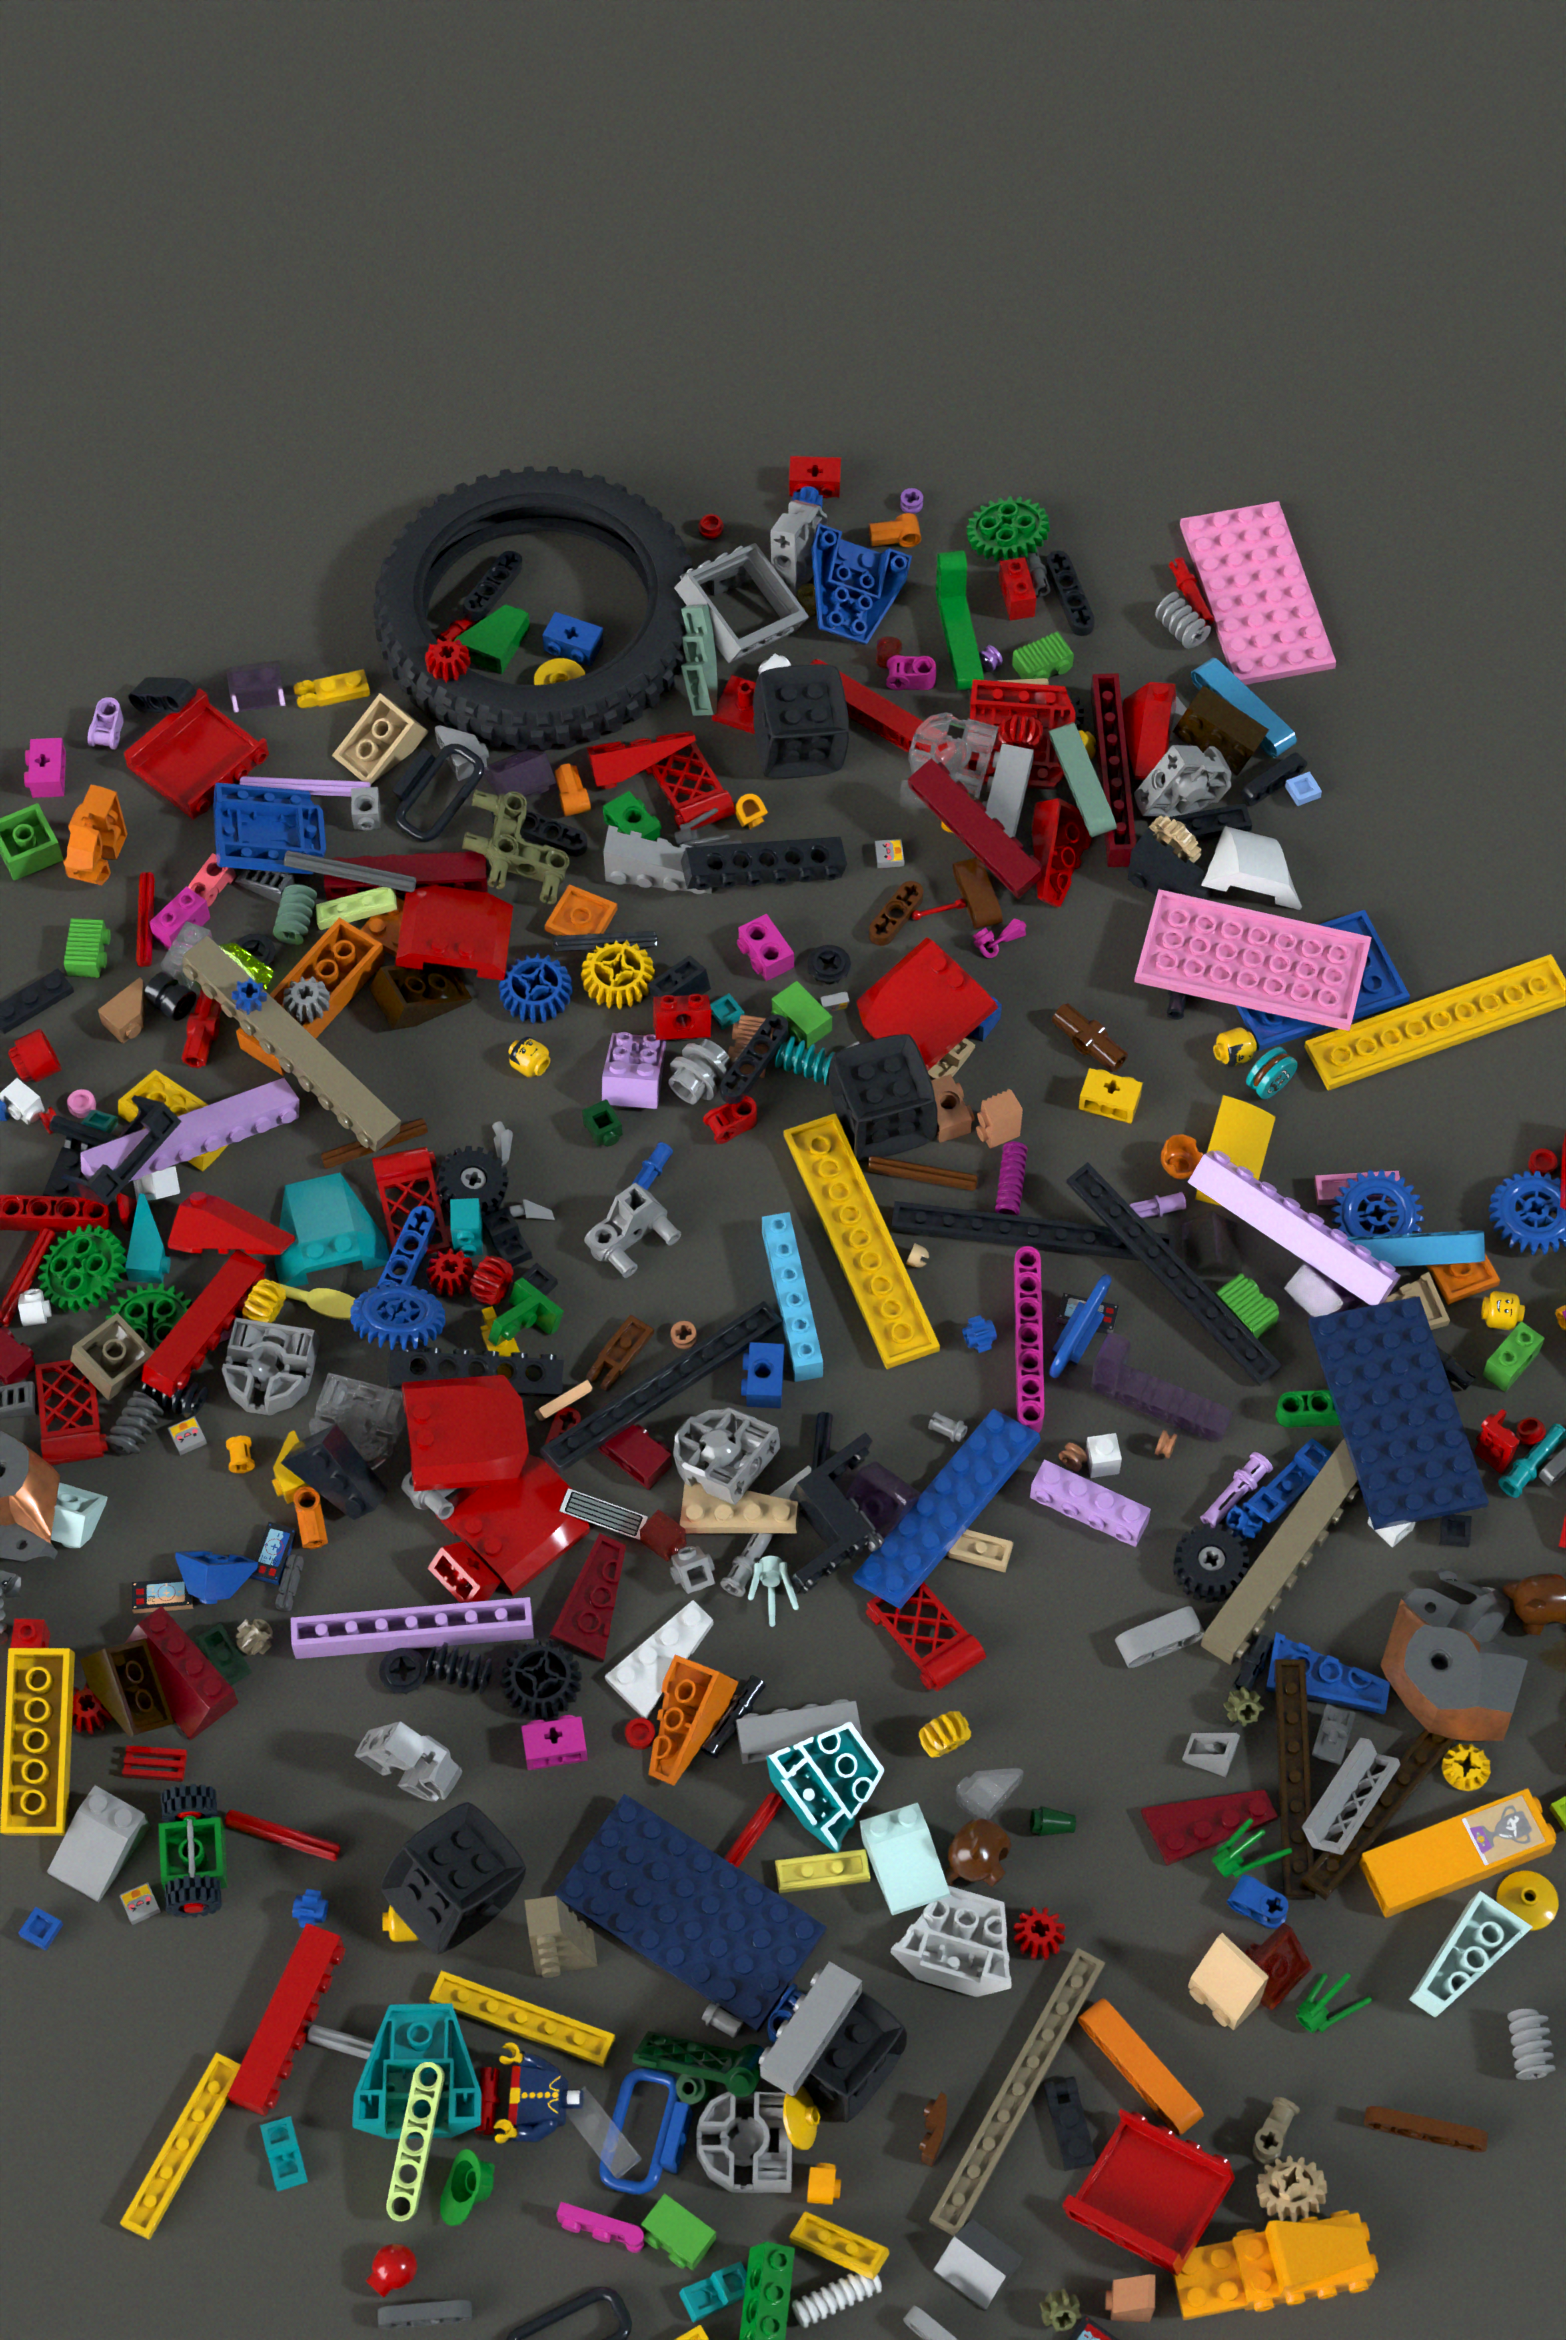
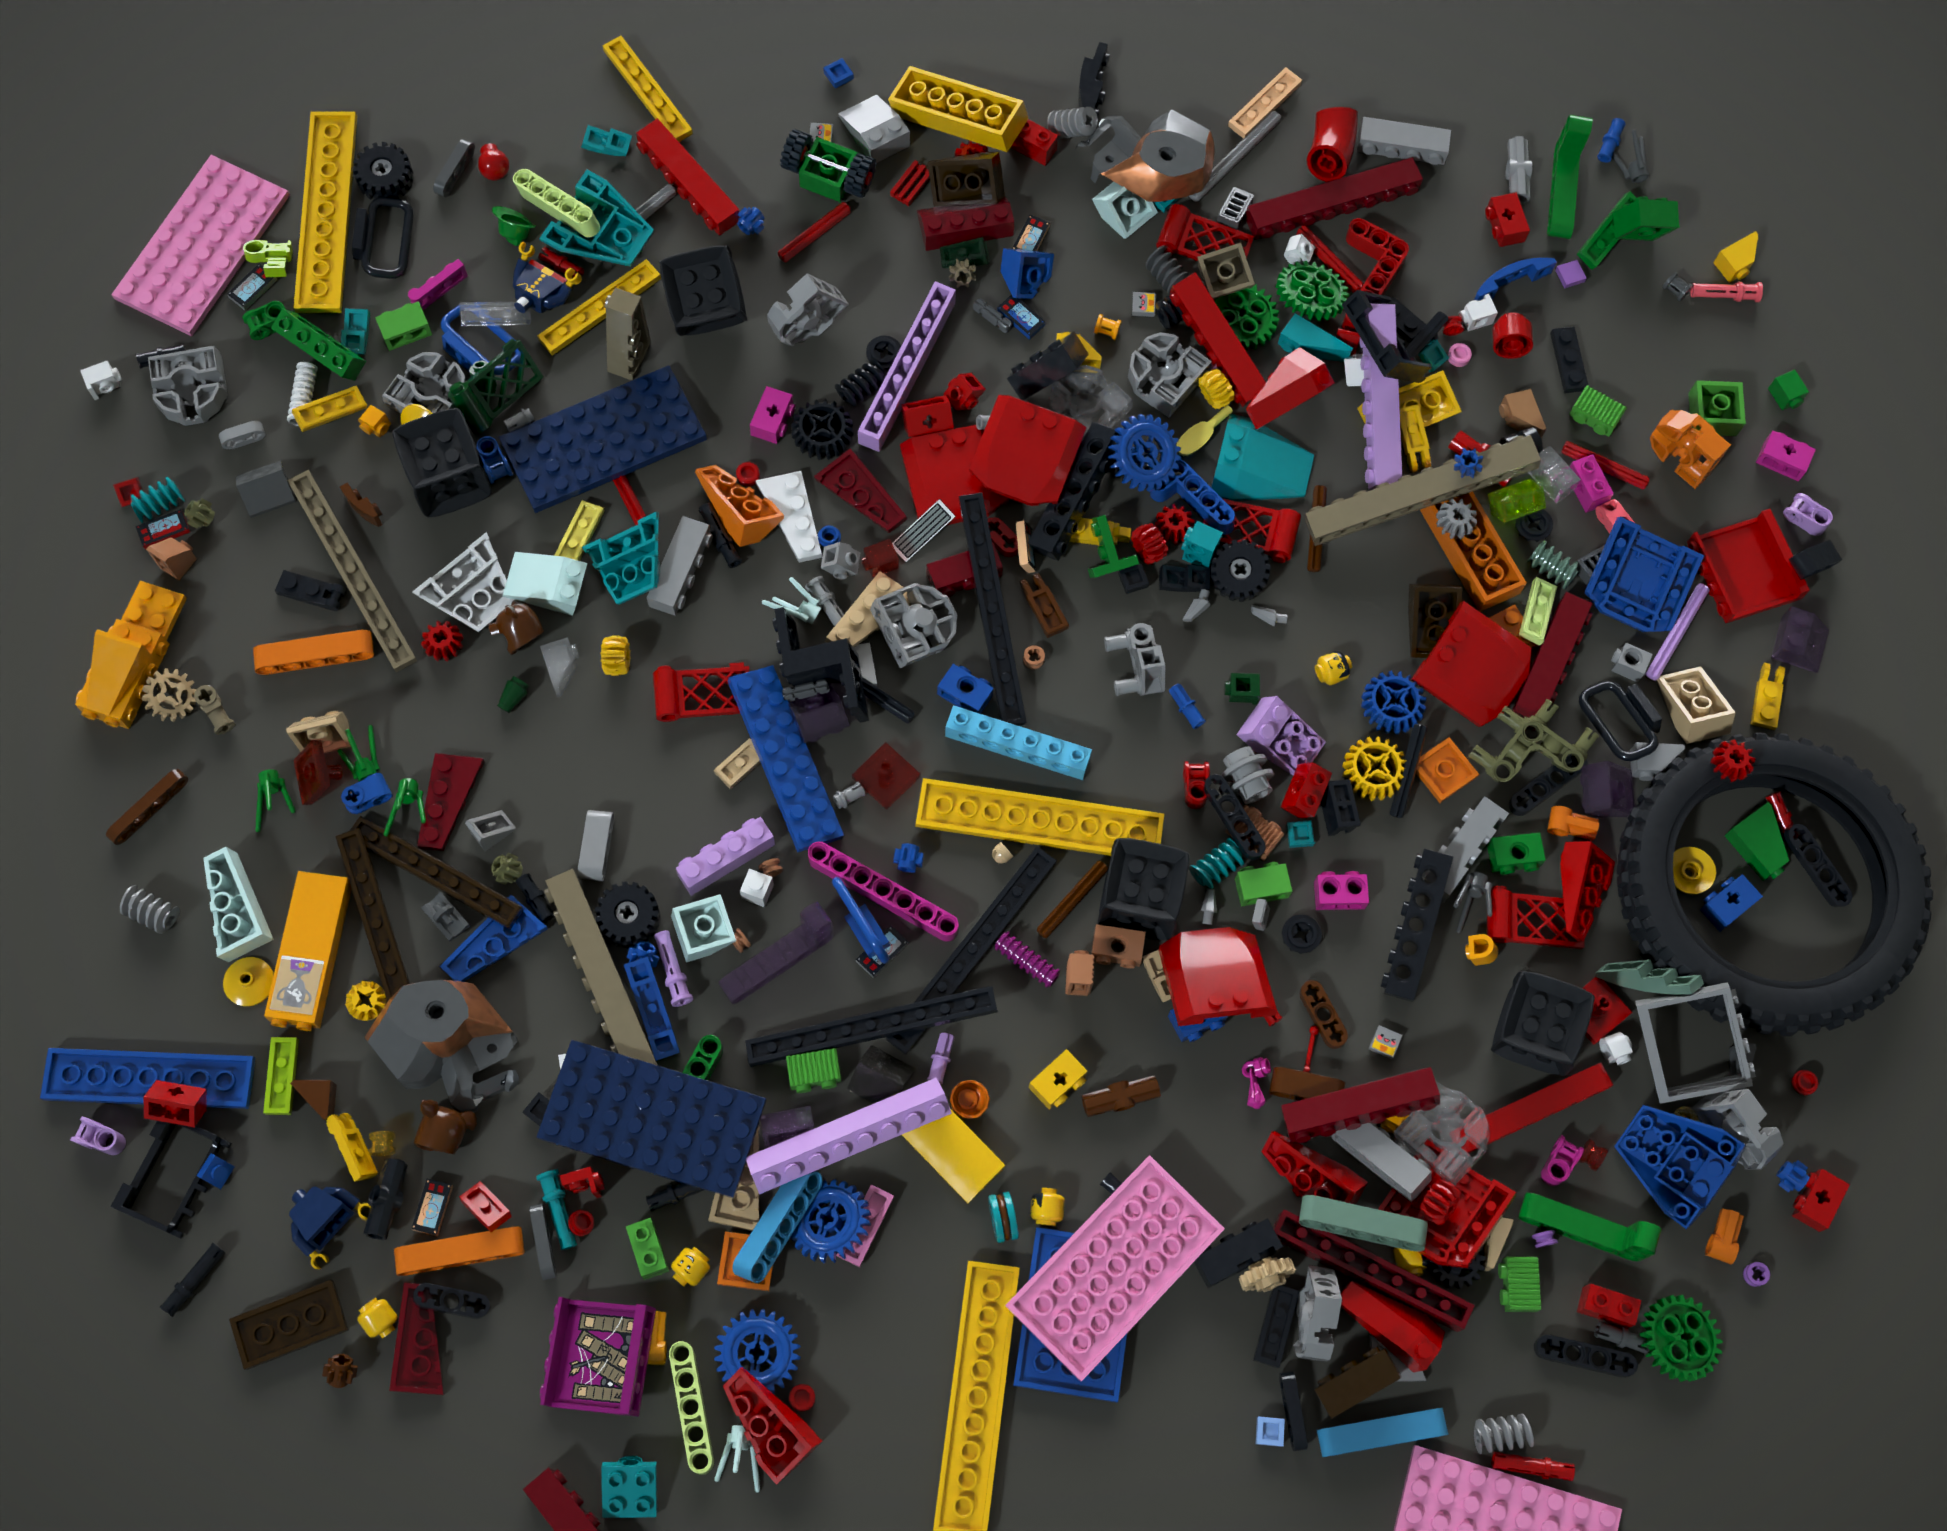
camera: 115 degrees right, 10 degrees up
(215, 1091) = (1414, 437): none -> yellow hinge
(310, 1519) = (1026, 344): orange piece -> none
(350, 871) = (1566, 610): dark grey axle -> none
(411, 1552) = (964, 391): none -> red brick
(666, 1597) = (829, 531): none -> blue plate
(810, 2028) = (443, 422): light grey brick -> none
(902, 1406) = (886, 775): none -> clear red tile
(1151, 2192) = (226, 603): red panel -> none
(1179, 1479) = (702, 927): none -> light aqua slope
(1231, 1924) = (363, 767): none -> green plant
(1251, 864) = (1211, 1329): white wedge -> none
(1342, 1797) = (399, 893): light grey fence -> none

